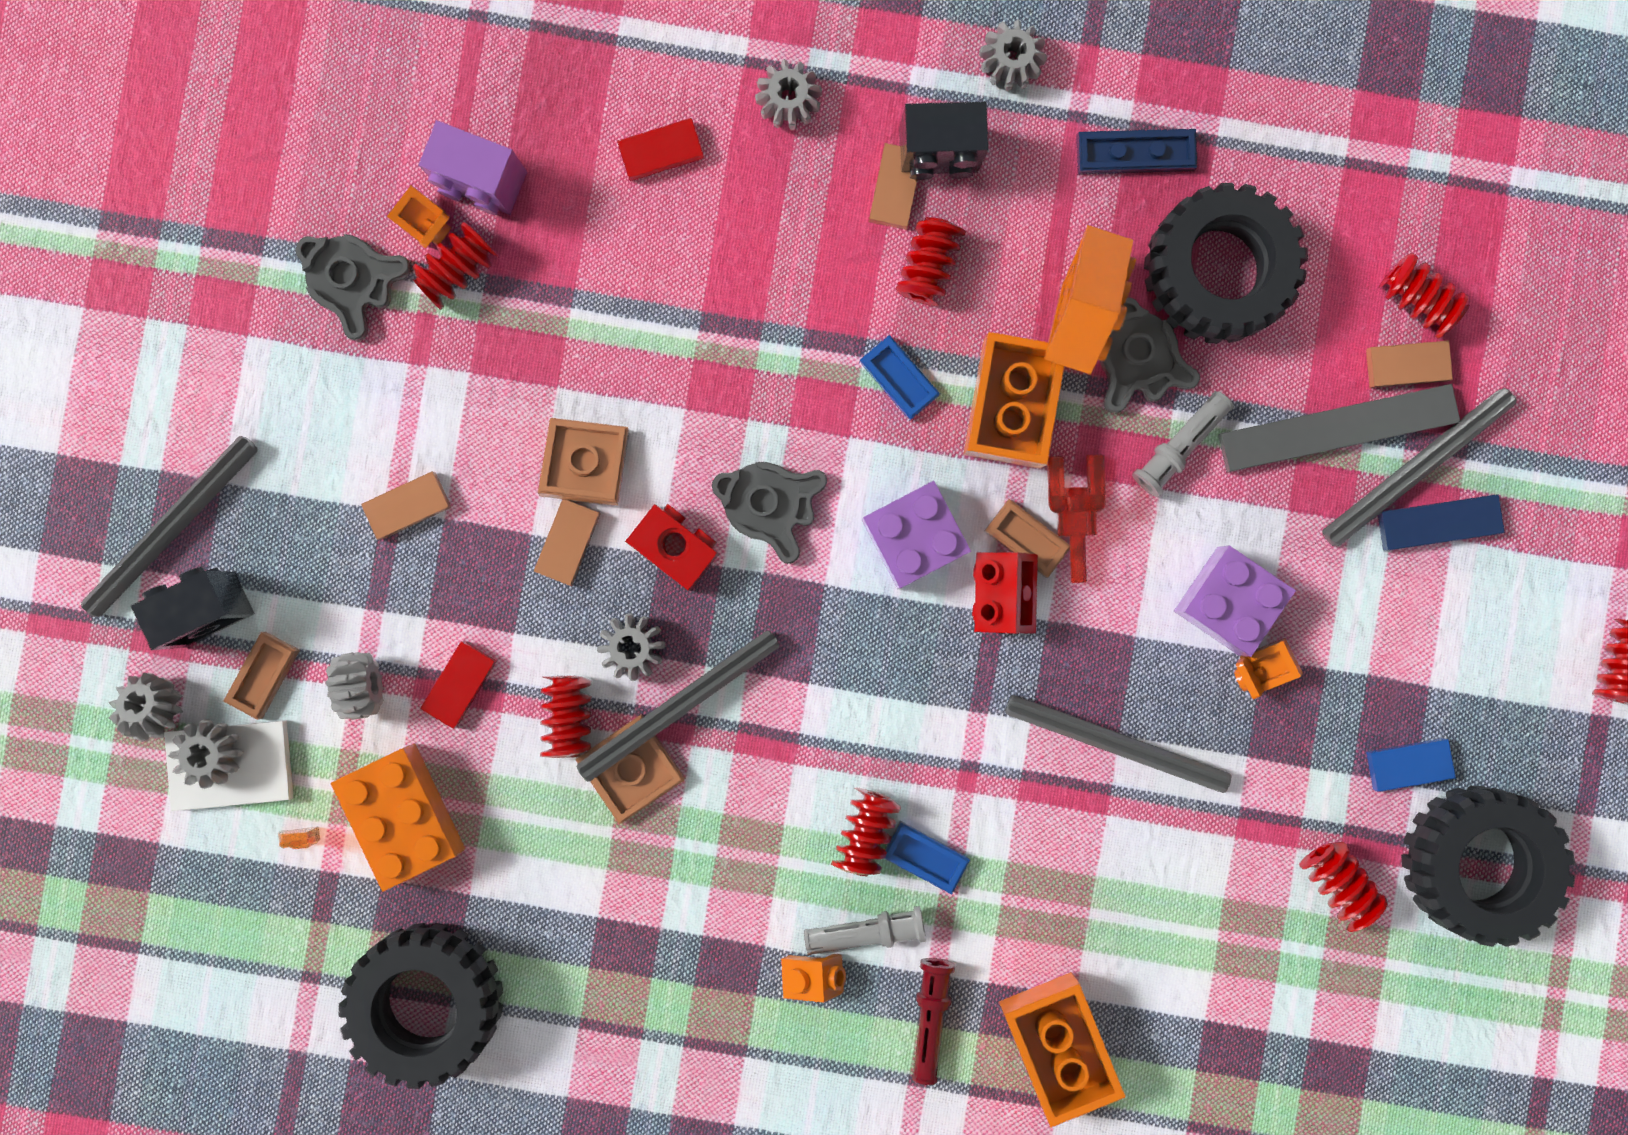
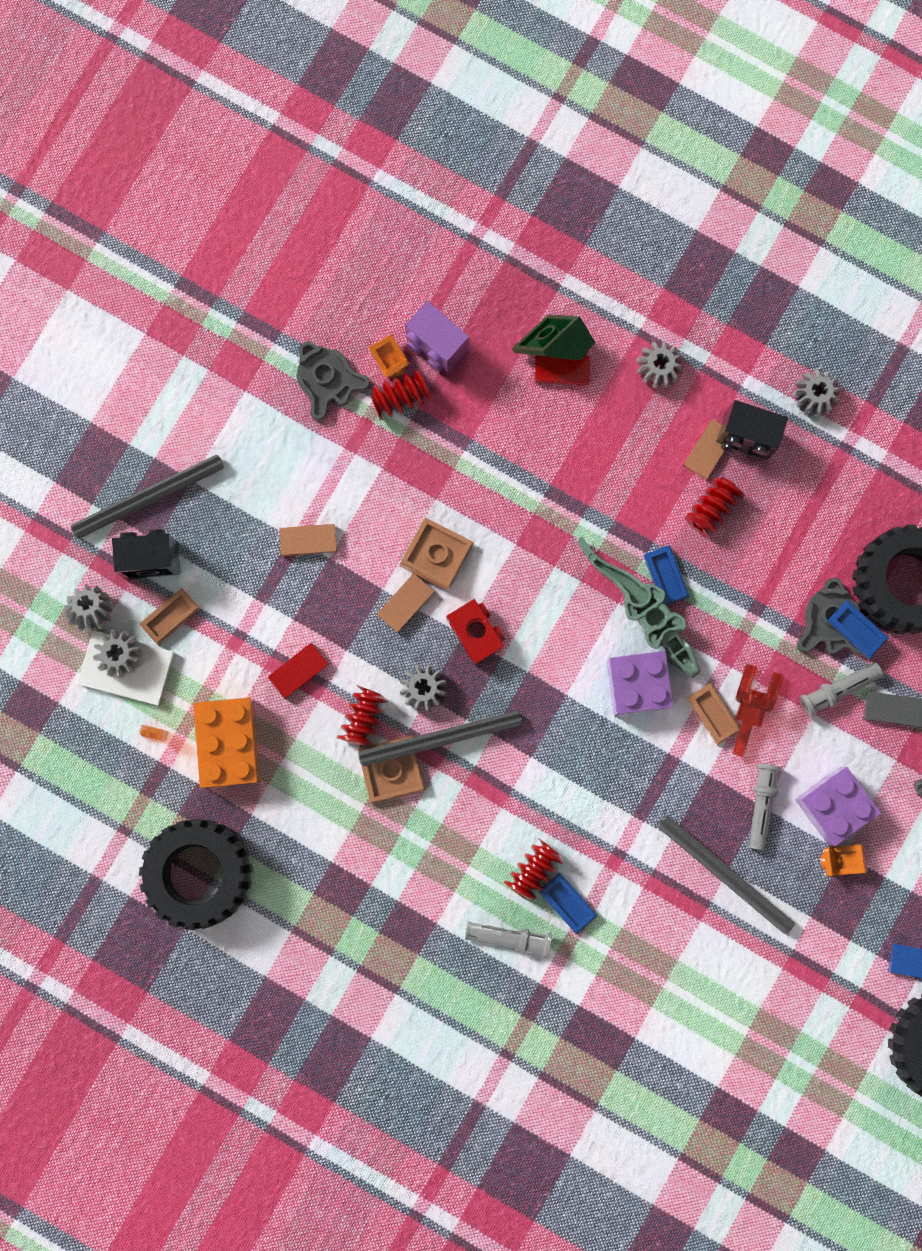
camera: 20 degrees right, 5 degrees down
(354, 685) = (231, 645): light grey gear -> none
(637, 109) = (557, 338): none -> dark green slope
(768, 502) = (549, 625): dark grey tile -> none
(812, 977) = (462, 955): orange bracket -> none
(888, 429) = (647, 606): none -> sand green animal
(933, 1002) = (538, 1002): dark red pin -> none
(1005, 592) = (686, 743): red brick -> none
(1013, 402) = (737, 618): orange brick -> none
(1062, 1049) = (613, 1066): orange brick -> none
(1091, 300) = (811, 570): orange brick -> none
(1133, 618) = (764, 791): none -> light grey pin
(1136, 151) = (877, 484): dark blue tile -> none
(1179, 356) = (857, 629): none -> blue tile
(1348, 883) = (846, 1026): red piece -> none

